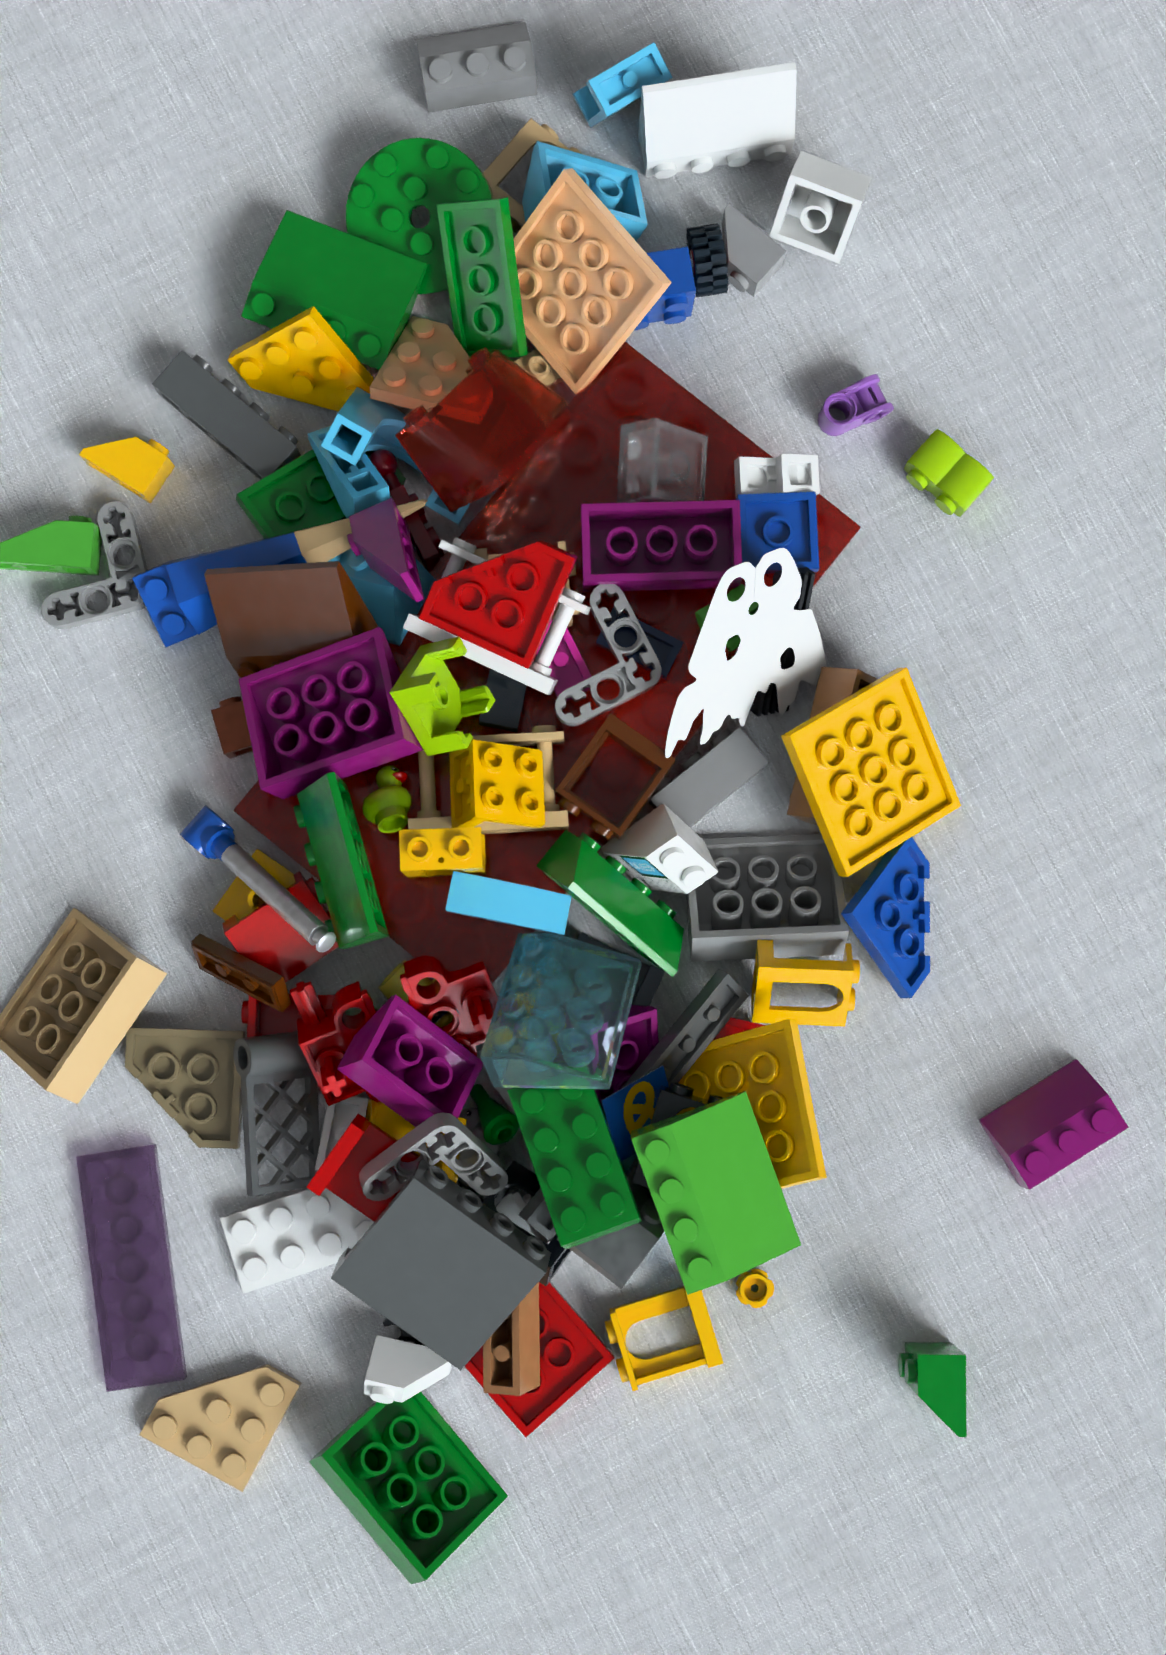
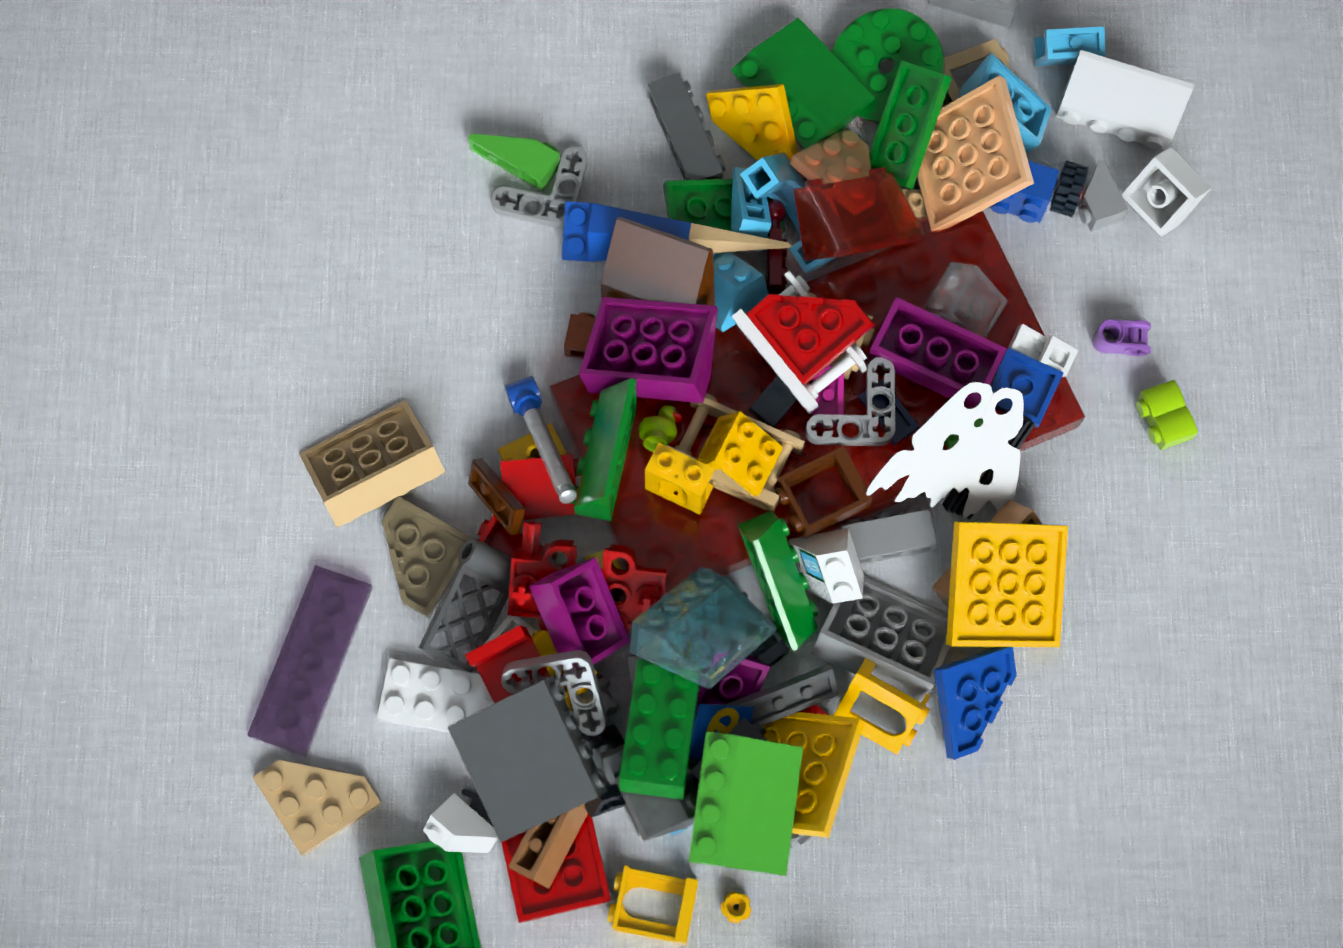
camera: 30 degrees right, 10 degrees down
(132, 464) = (604, 130): yellow slope -> none
(386, 545) = (749, 258): magenta slope -> none
(434, 700) = (726, 373): lime panel -> none
(496, 1121) = (616, 690): green cone -> none
(508, 903) = (705, 538): medium azure slope -> none
(1052, 1124) = (1011, 904): magenta slope -> none

